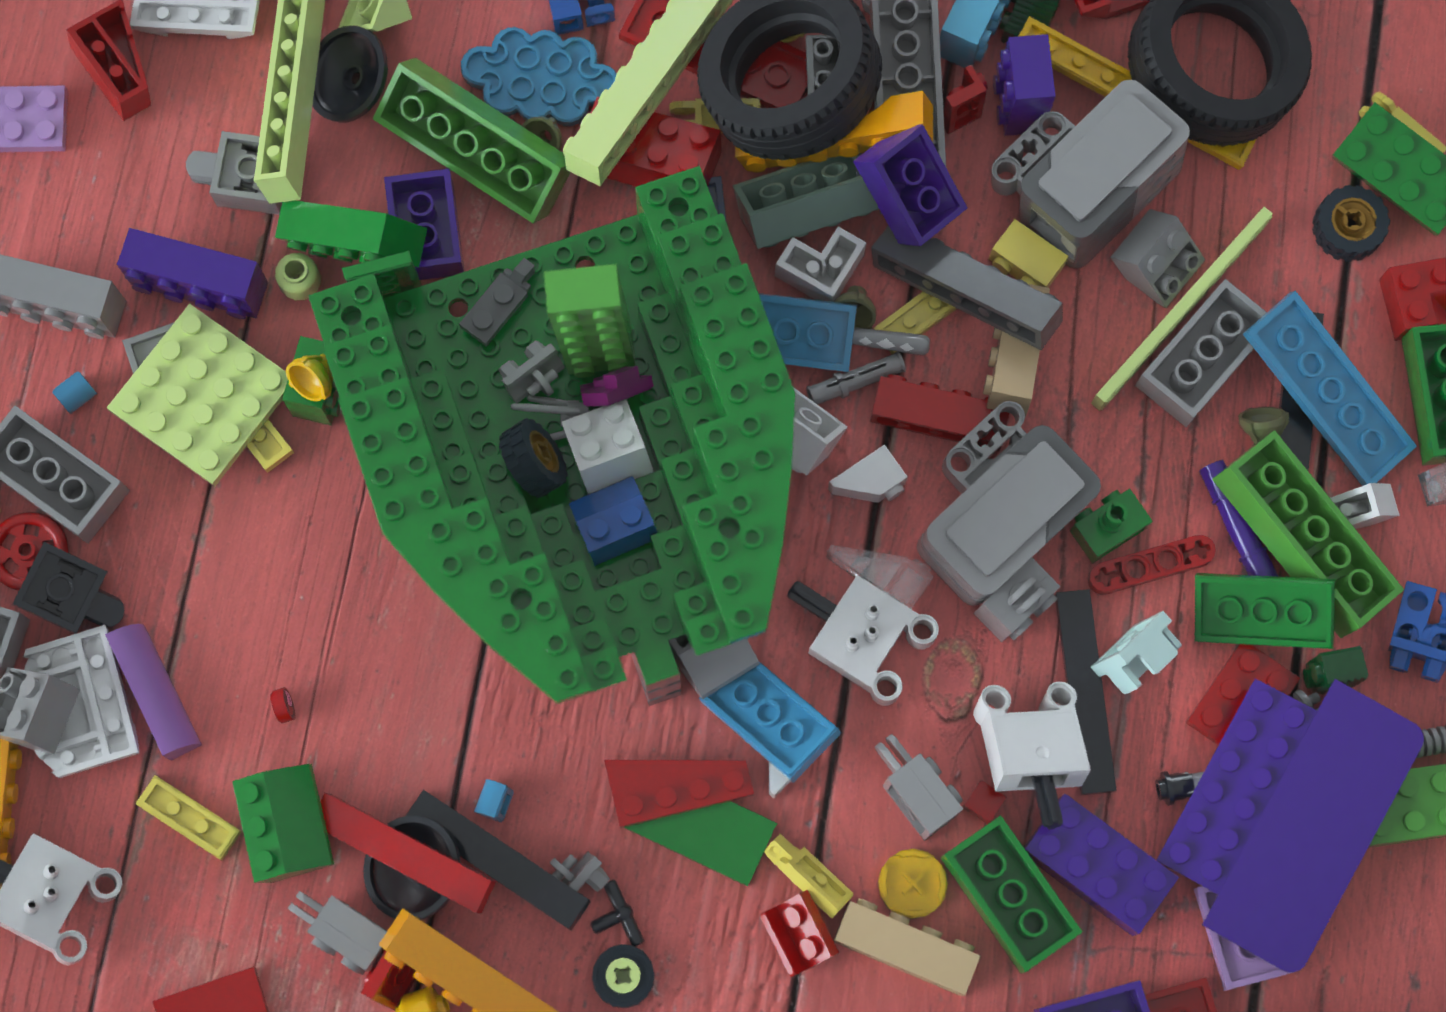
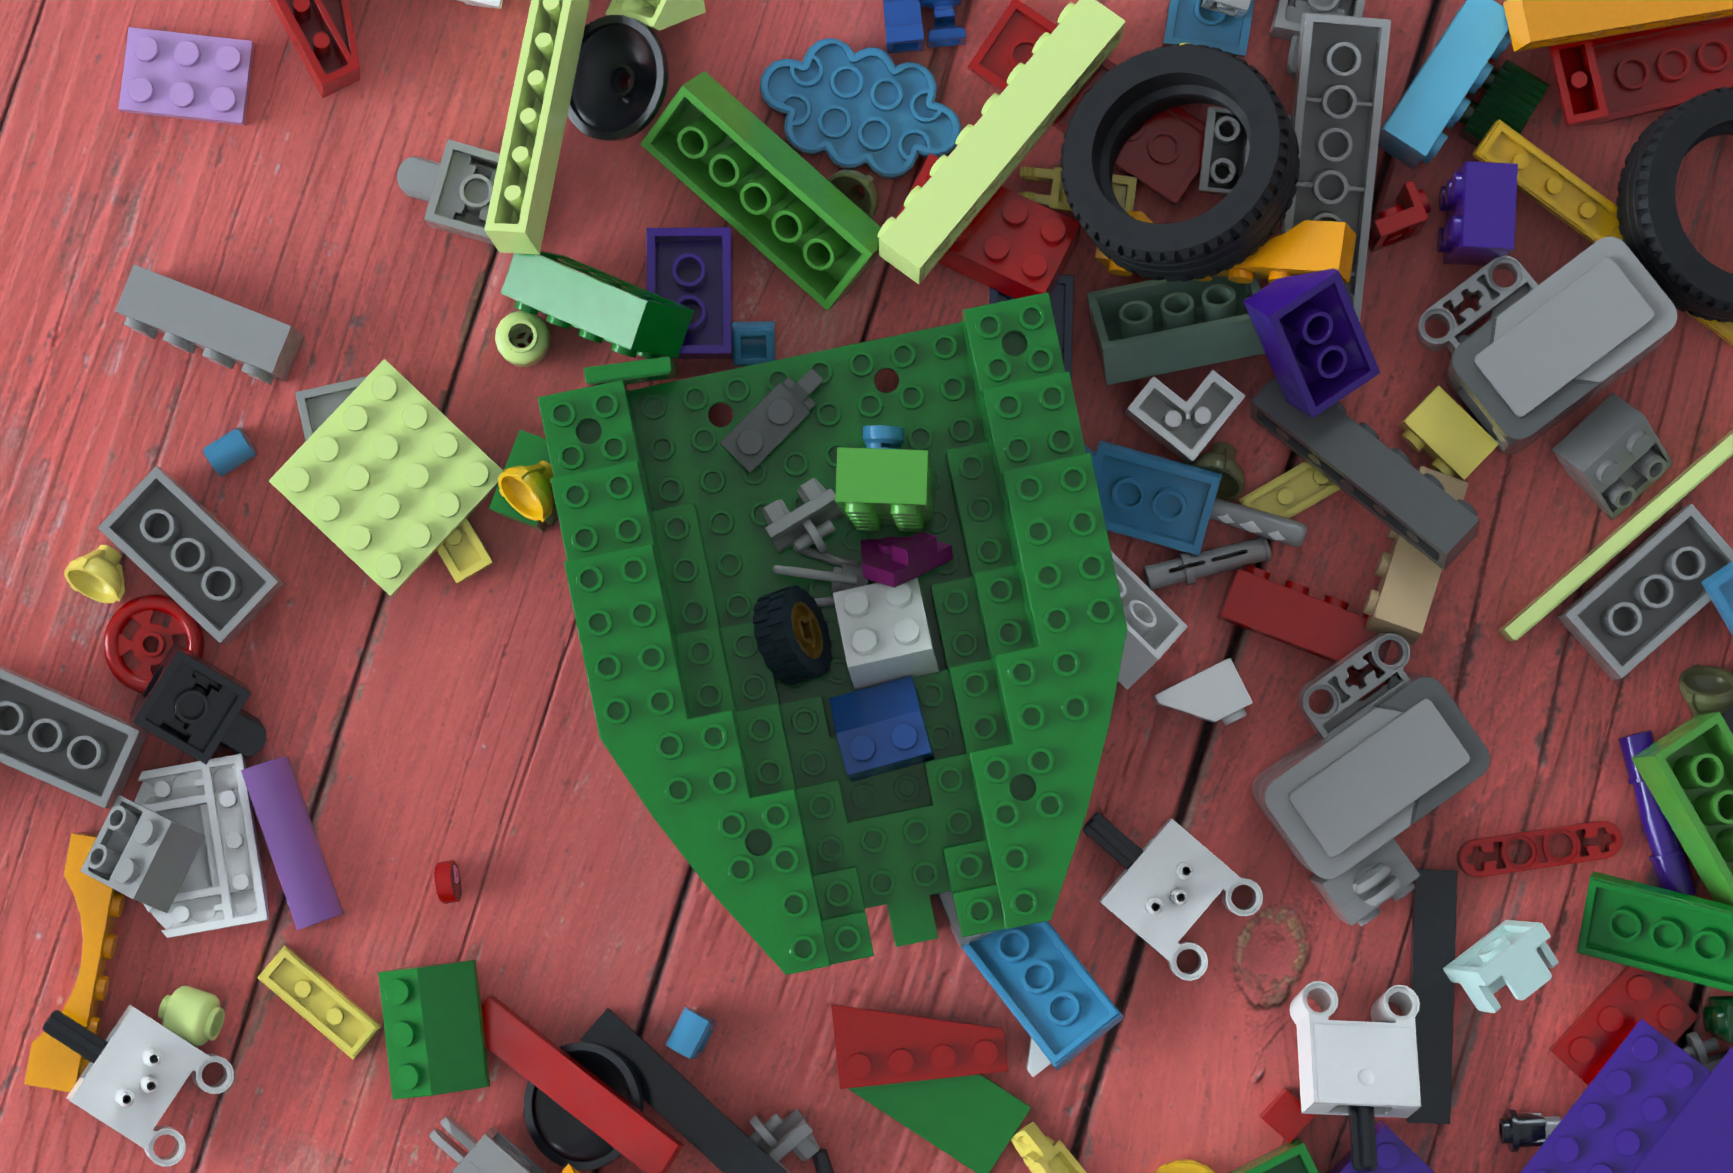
camera: 10 degrees right, 10 degrees up
(85, 838) = (192, 1015): none -> yellowish green head
(192, 274) = (394, 320): dark purple brick -> none
(477, 254) = (753, 342): none -> dark azure brick
(892, 574) = (1214, 822): clear slope -> none
(919, 789) = (1209, 1097): light grey brick -> none
(1110, 525) = (1499, 794): green brick -> none

